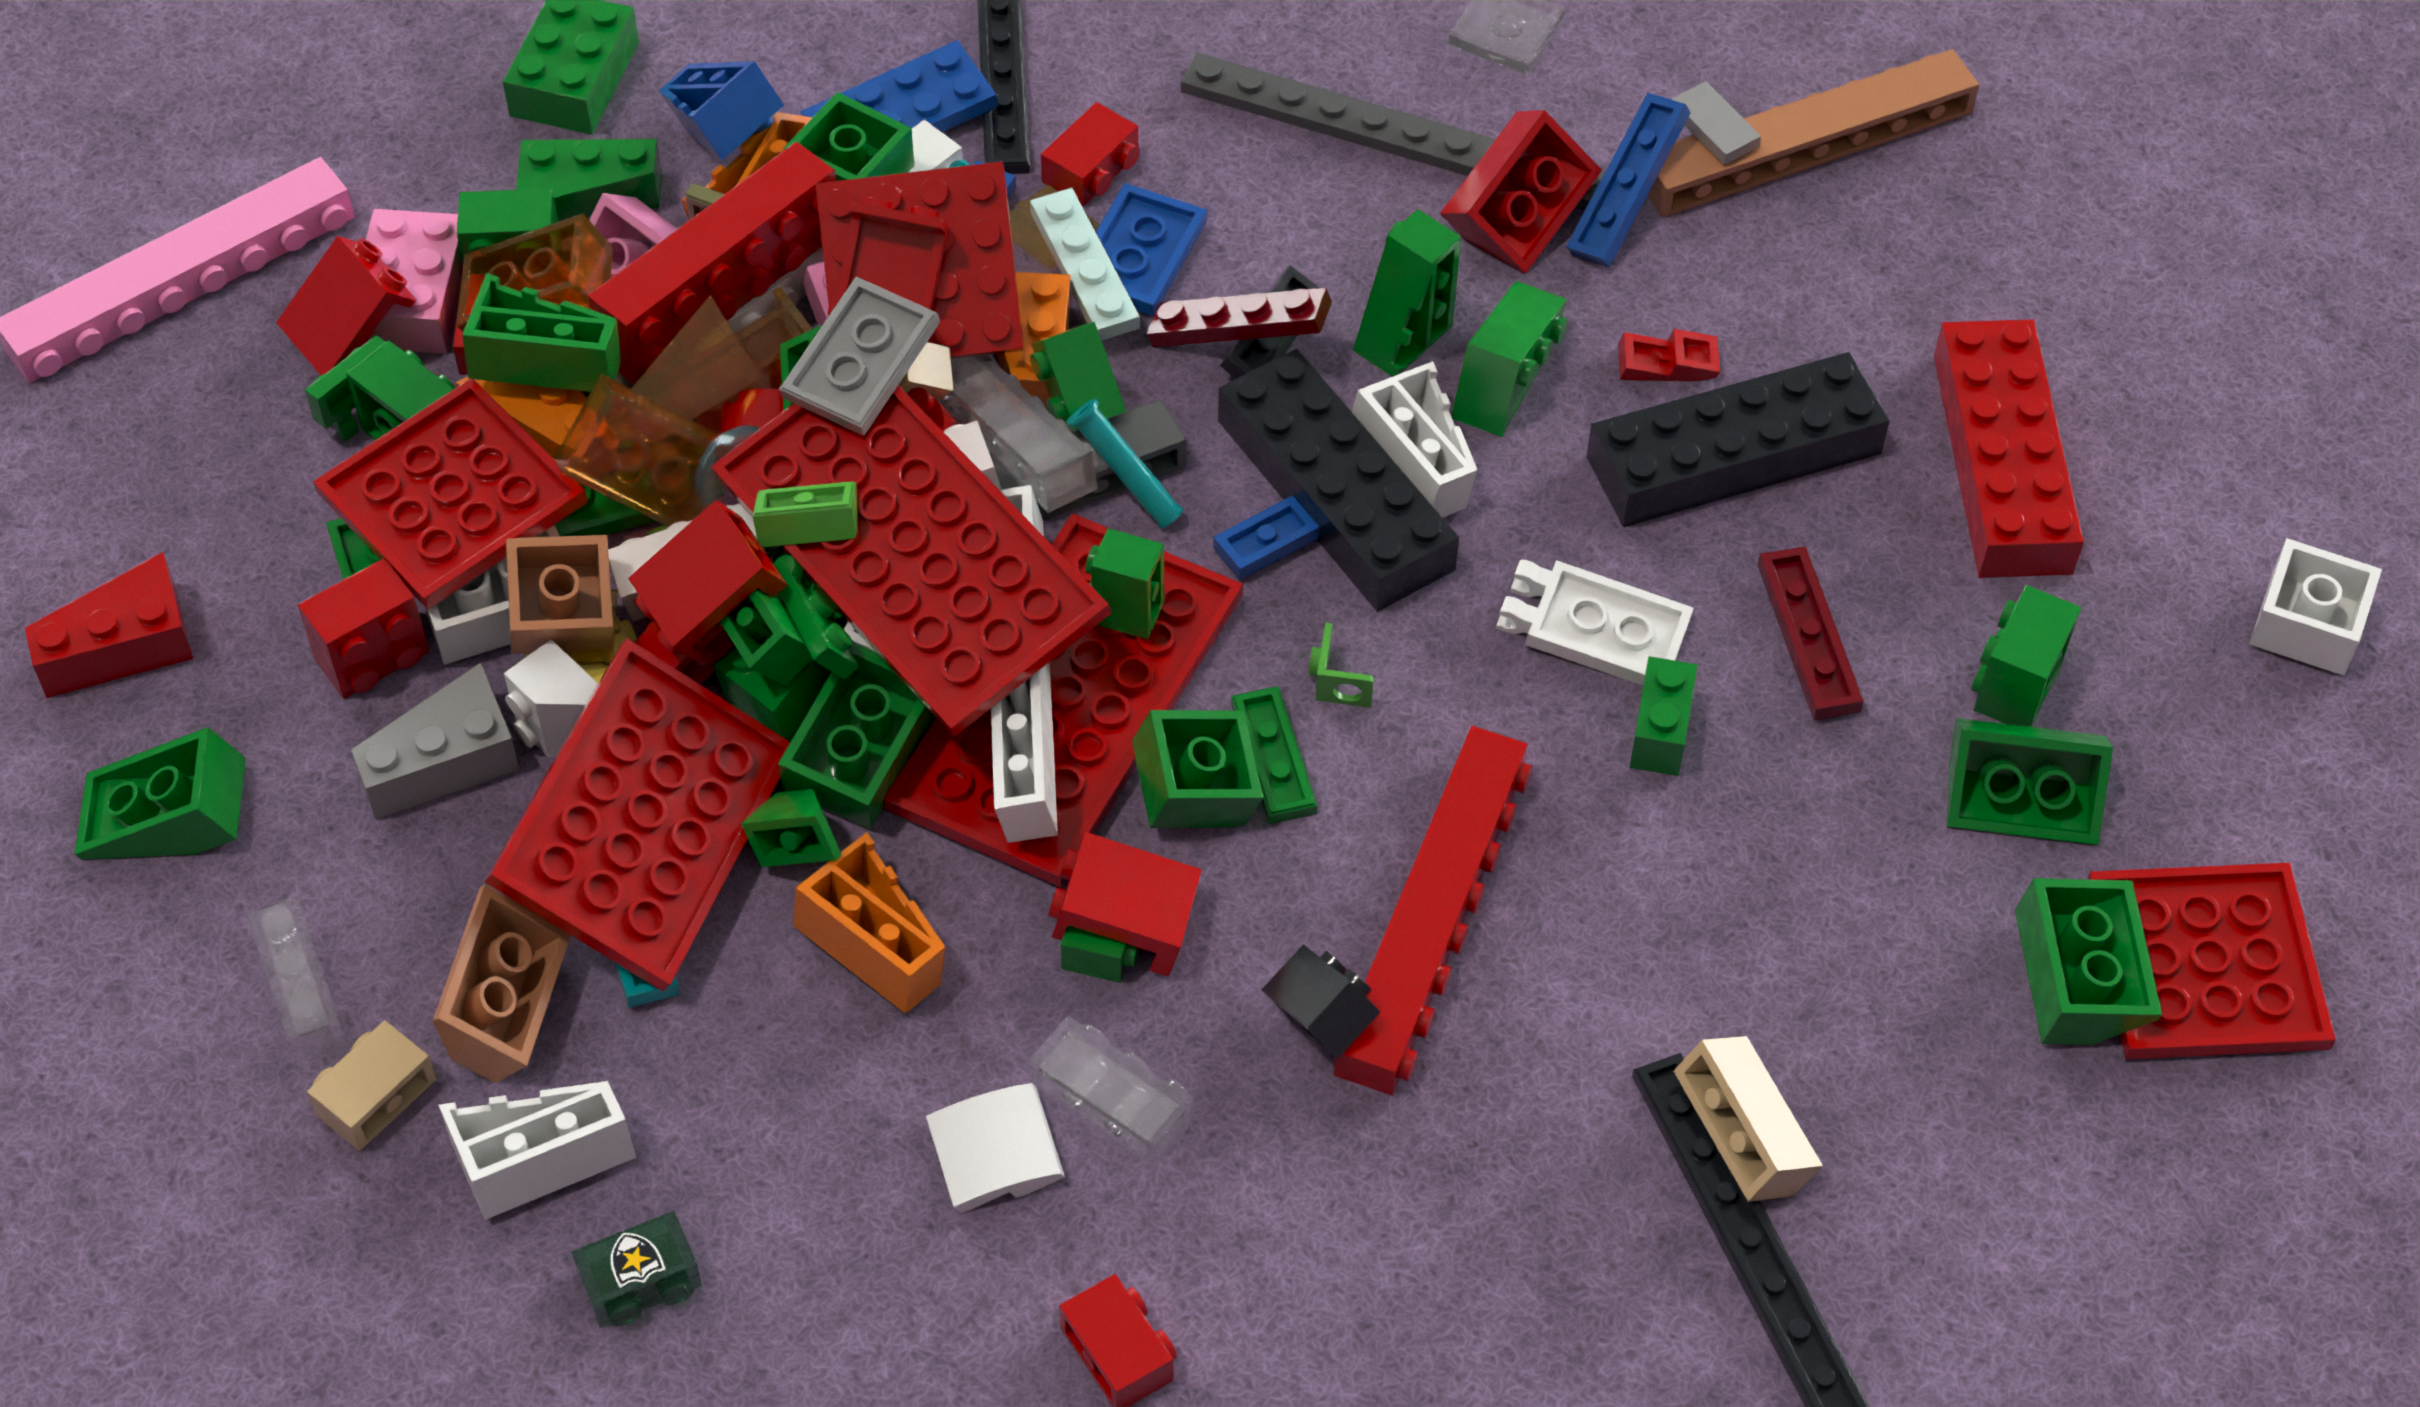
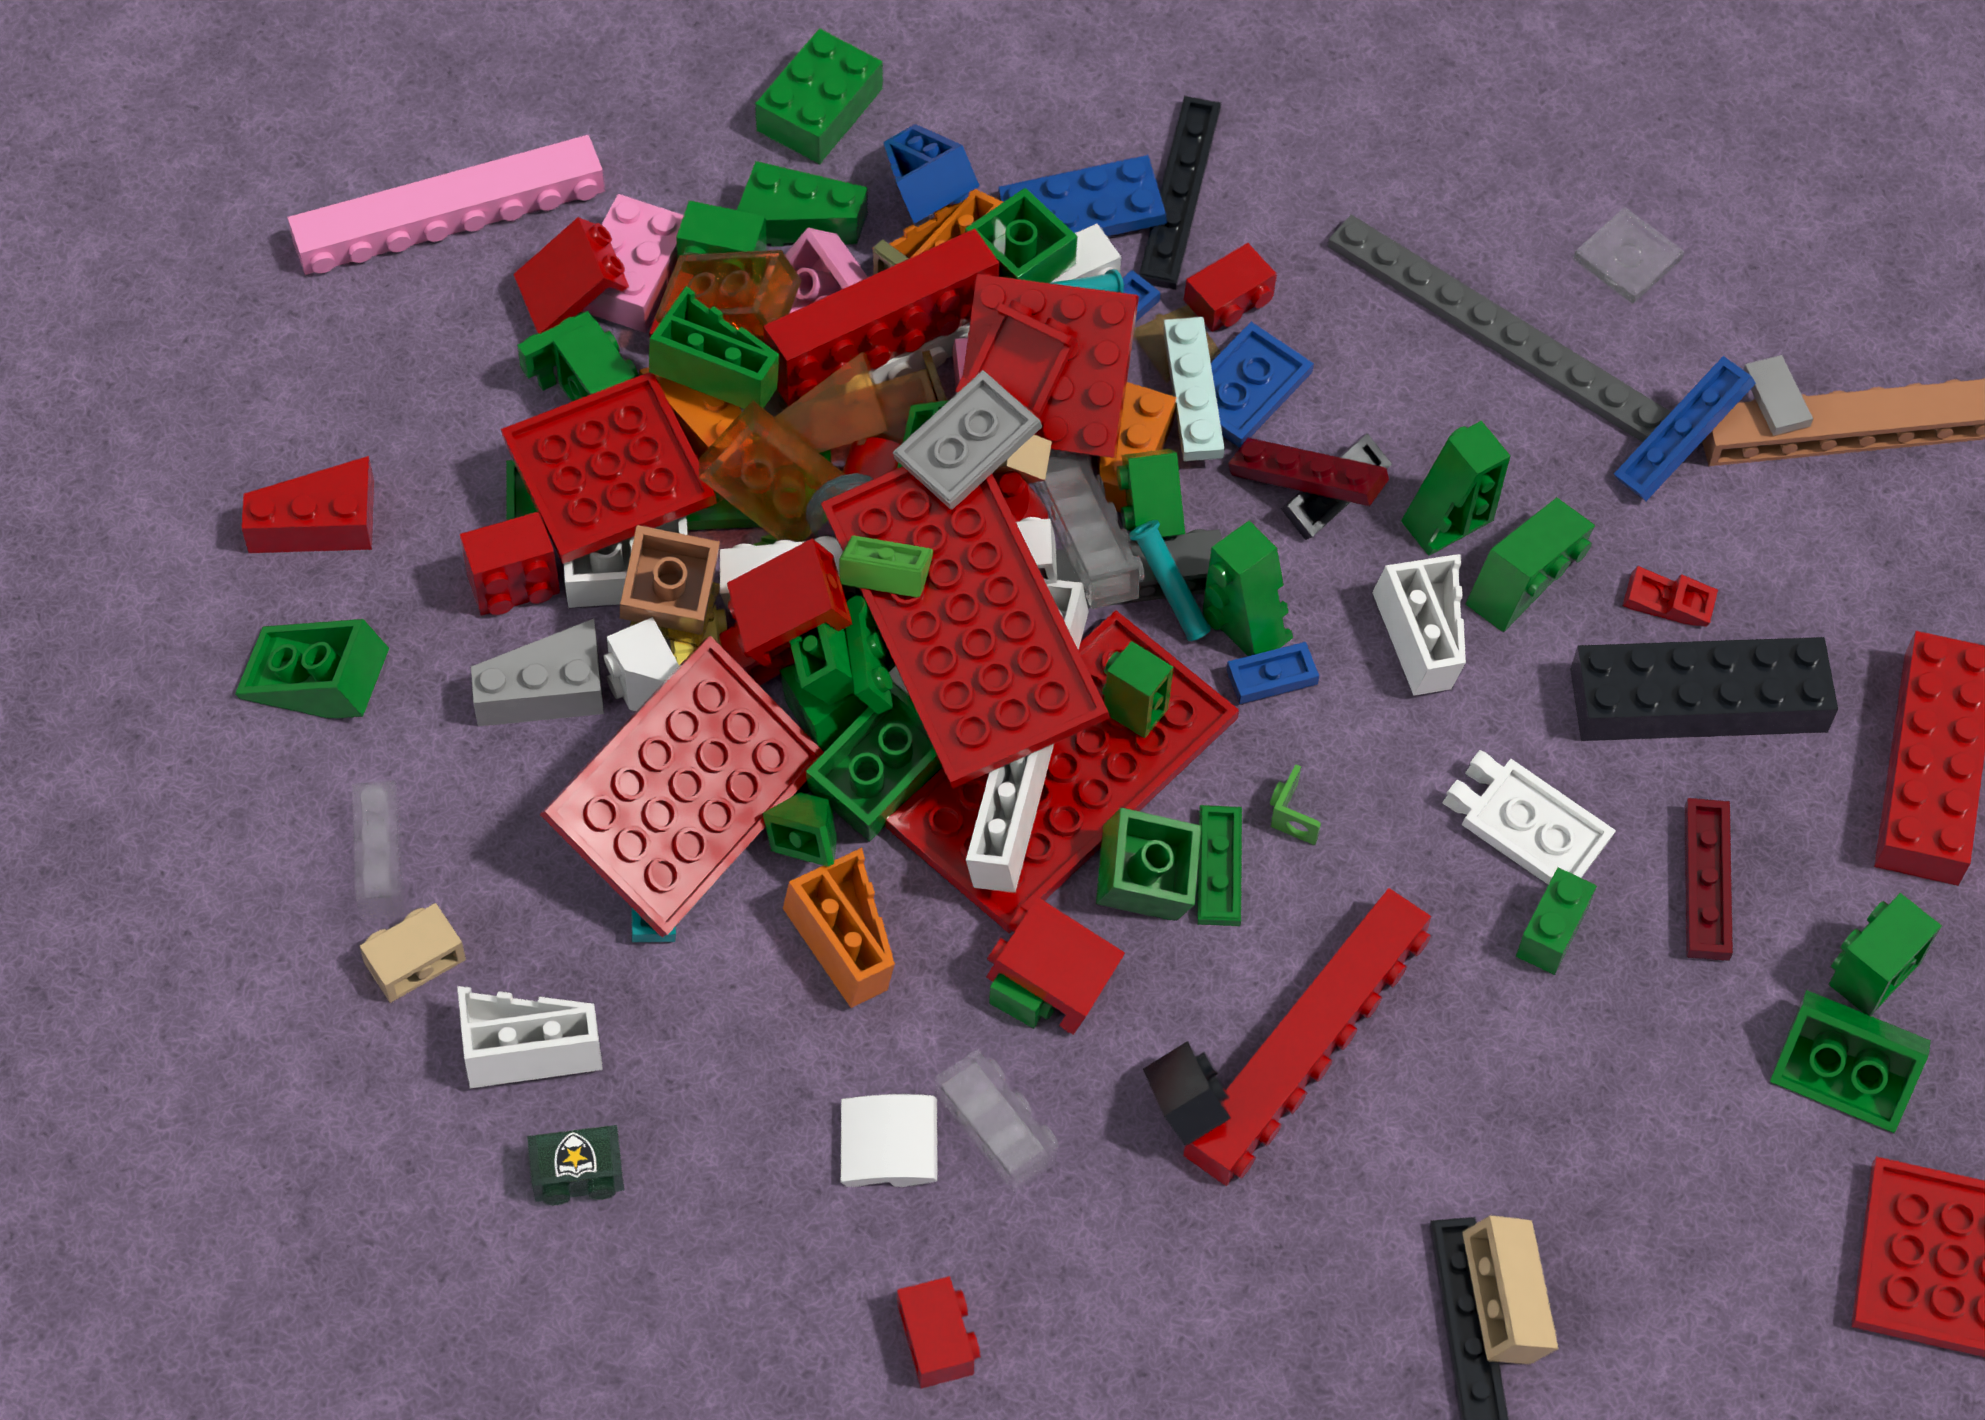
camera: 15 degrees right, 5 degrees up
(499, 986) = (531, 900): nougat slope -> none
(1211, 453) = (1244, 591): none -> green wedge
(1324, 457) = (1350, 638): black brick -> none
(1521, 189) = (1589, 414): red slope -> none
(2086, 959) = (1844, 1233): green slope -> none

